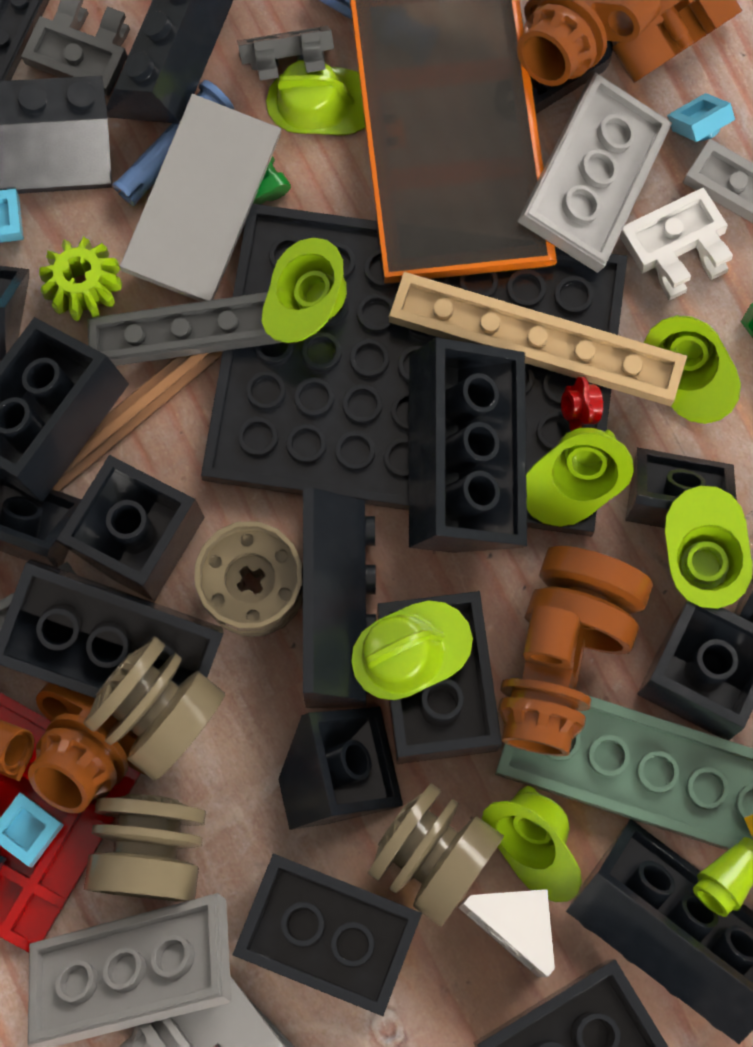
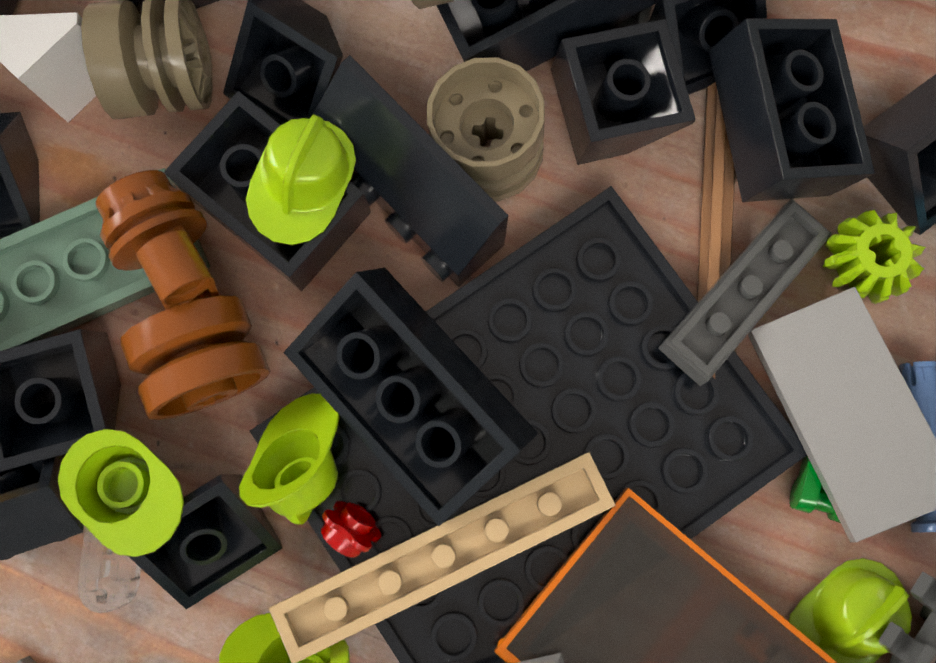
camera: 140 degrees right, 5 degrees up
(304, 290) = (679, 399): lime piece -> none
(536, 843) = (90, 149): lime piece -> none

